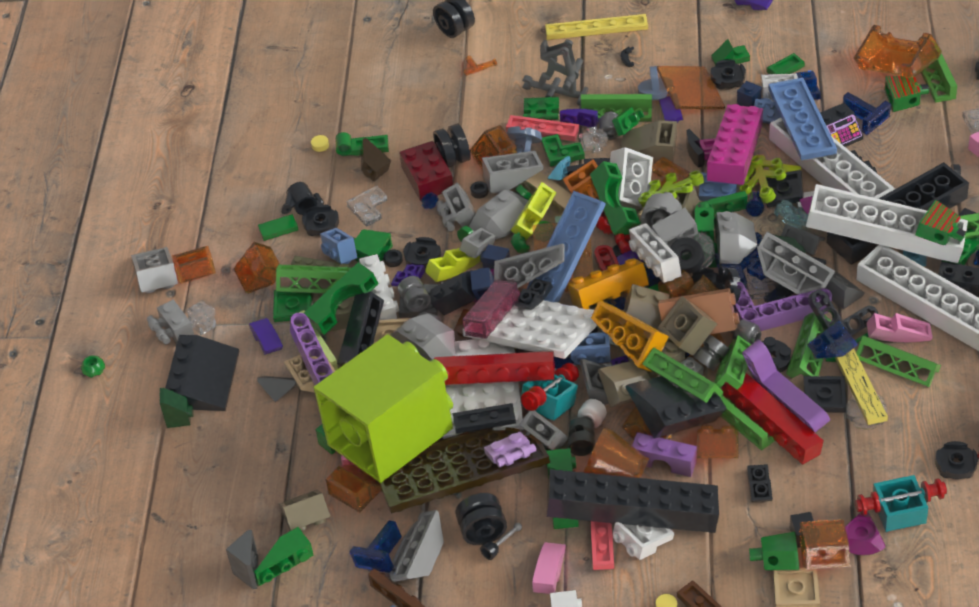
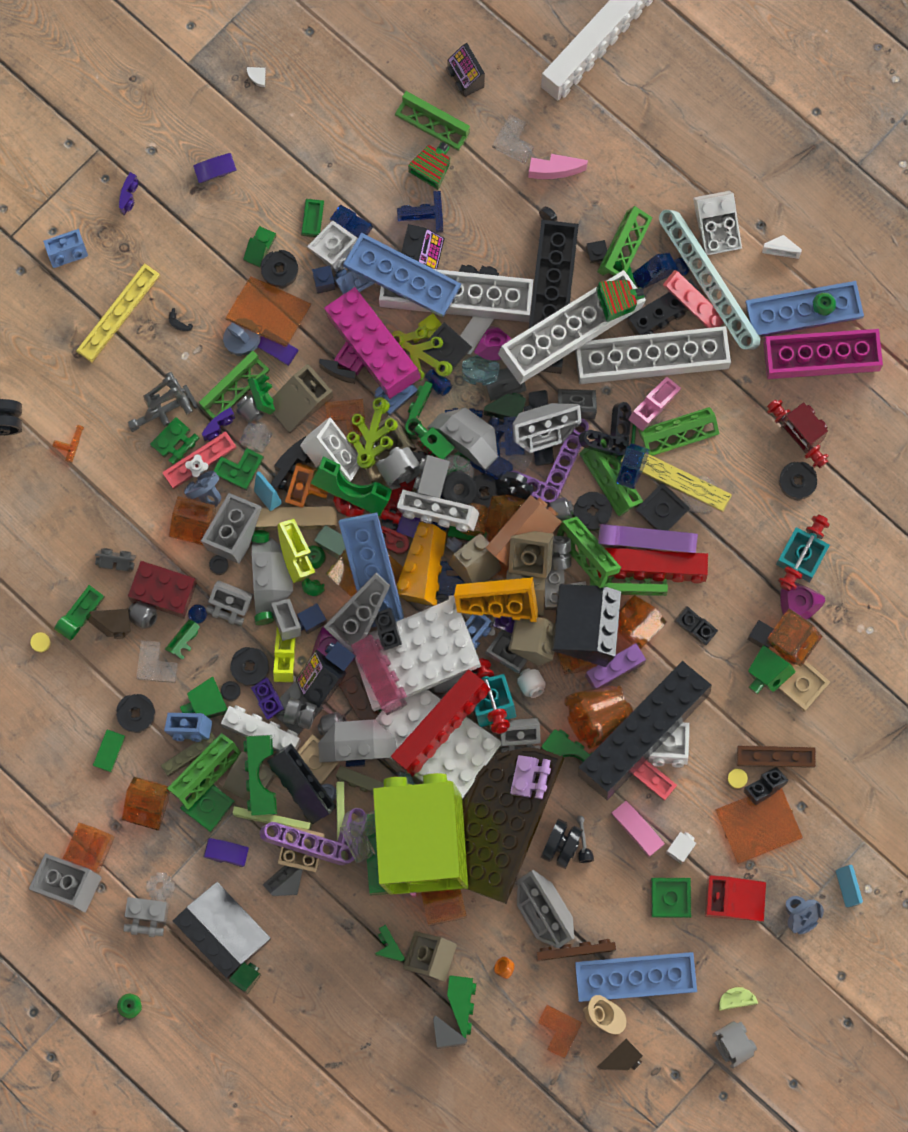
camera: 55 degrees left, 30 degrees up
(287, 480) = (392, 950): none -> green slope
(300, 198) = (100, 711): black piece -> none
(341, 562) = (504, 967): none -> orange tile
(377, 553) = (518, 934): clear blue bracket -> none
(396, 174) = (142, 614): none -> flat silver head
(408, 204) = (185, 634): none -> green plate
(416, 132) = (122, 559): none -> dark grey hinge
(452, 144) = (159, 549): black wheel -> none
(484, 418) = (478, 767): black plate -> none
(535, 123) = (196, 471): none -> white plate
(581, 436) = (552, 713): pearl dark grey wheel -> none
(681, 375) = (575, 601): bright green fence -> none
(896, 56) = (396, 135): clear orange windscreen -> none

